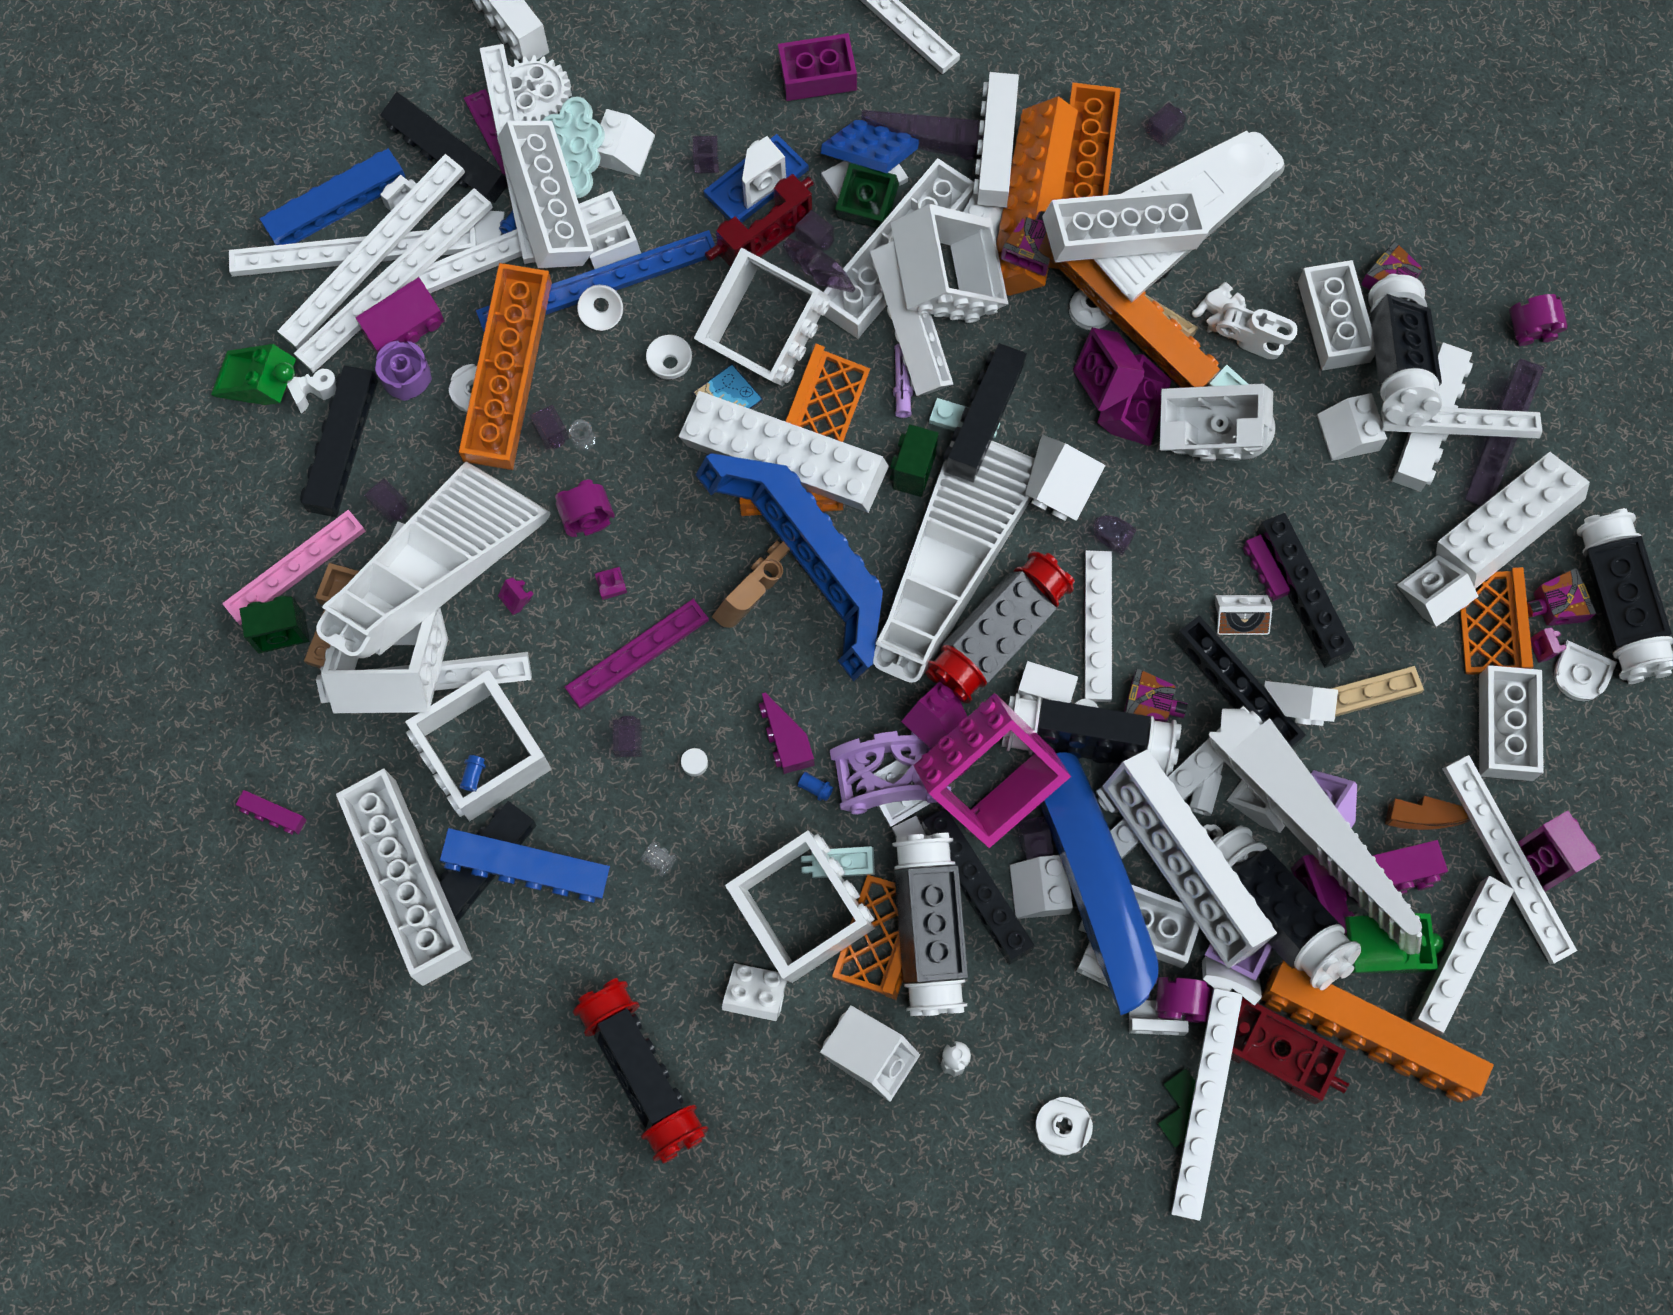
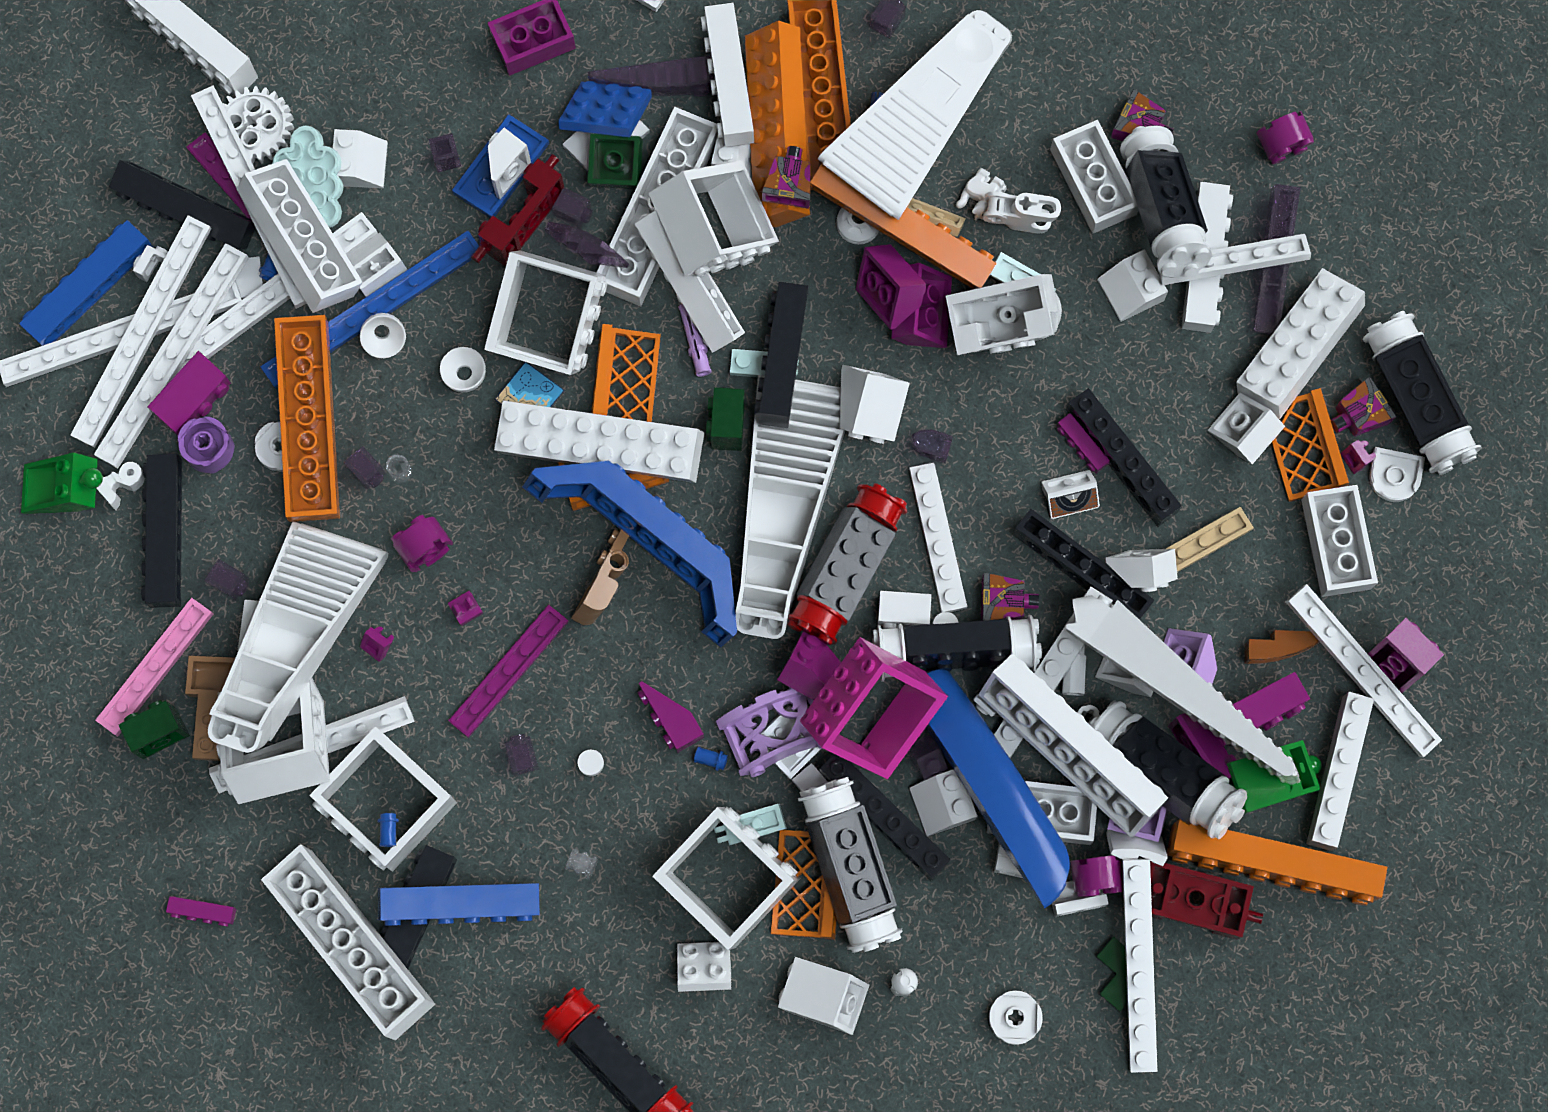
camera: 15 degrees left, 5 degrees up
(1124, 224) = (875, 149): white brick -> none

